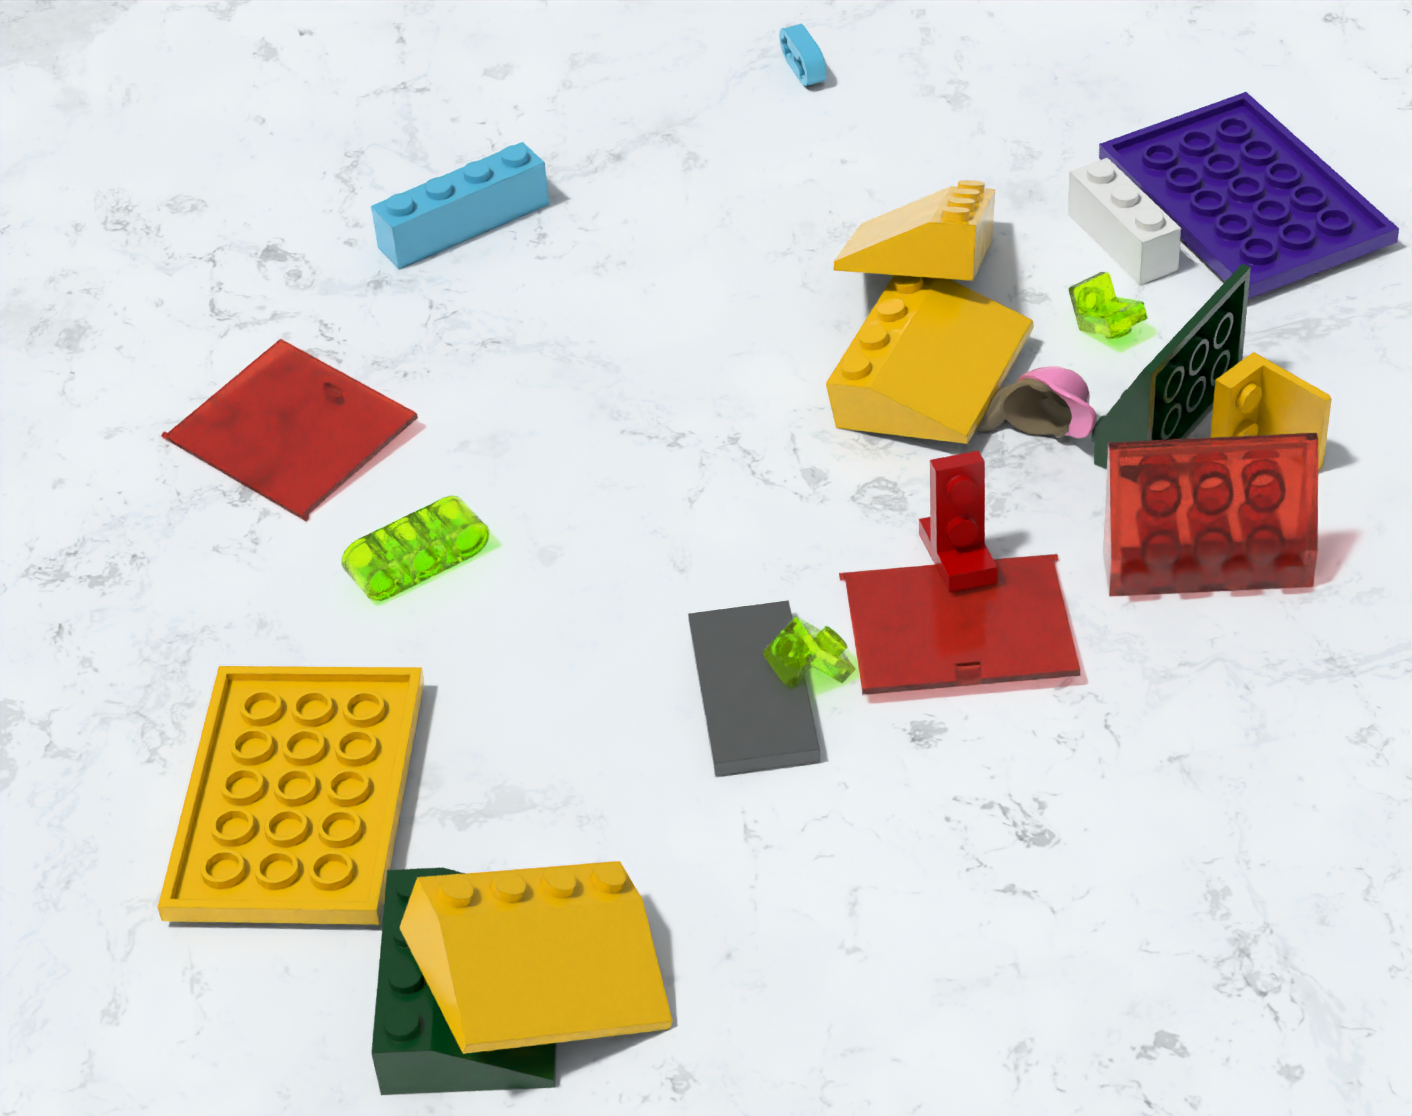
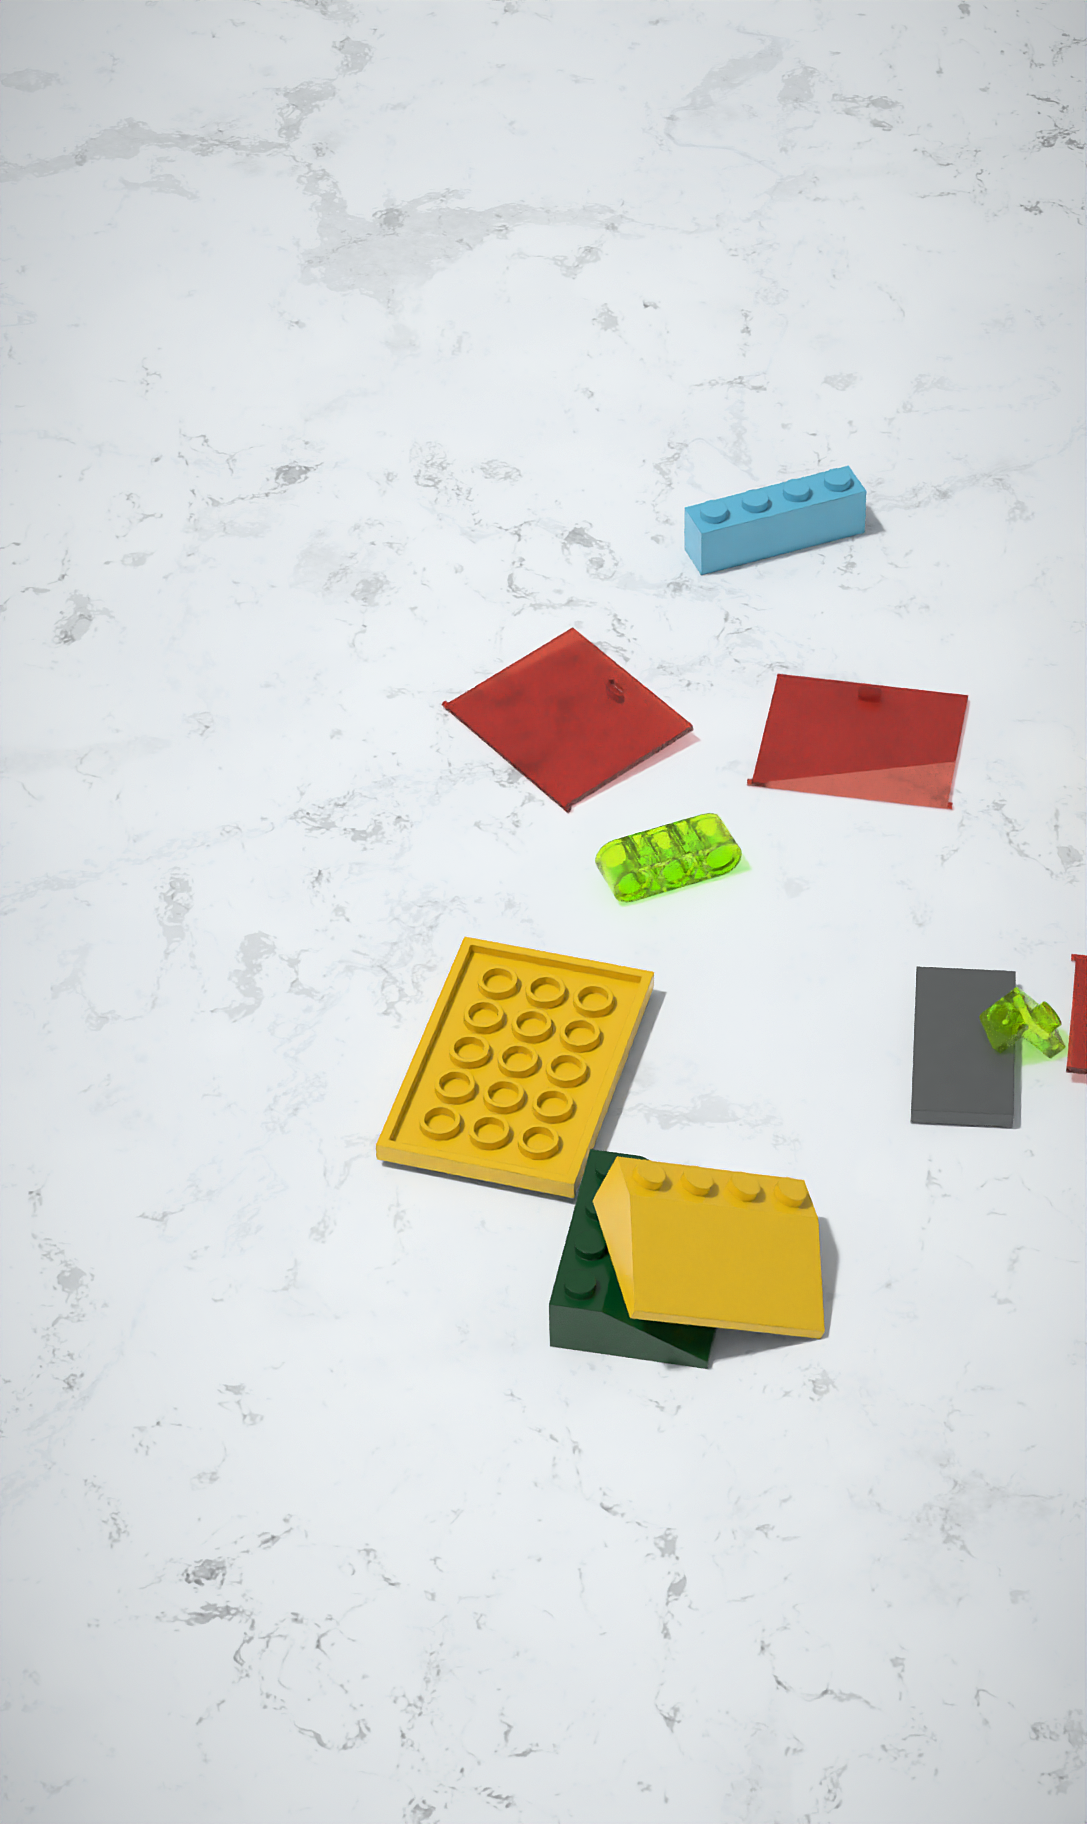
camera: 10 degrees right, 0 degrees up
(585, 401) = (861, 741): none -> clear red piece

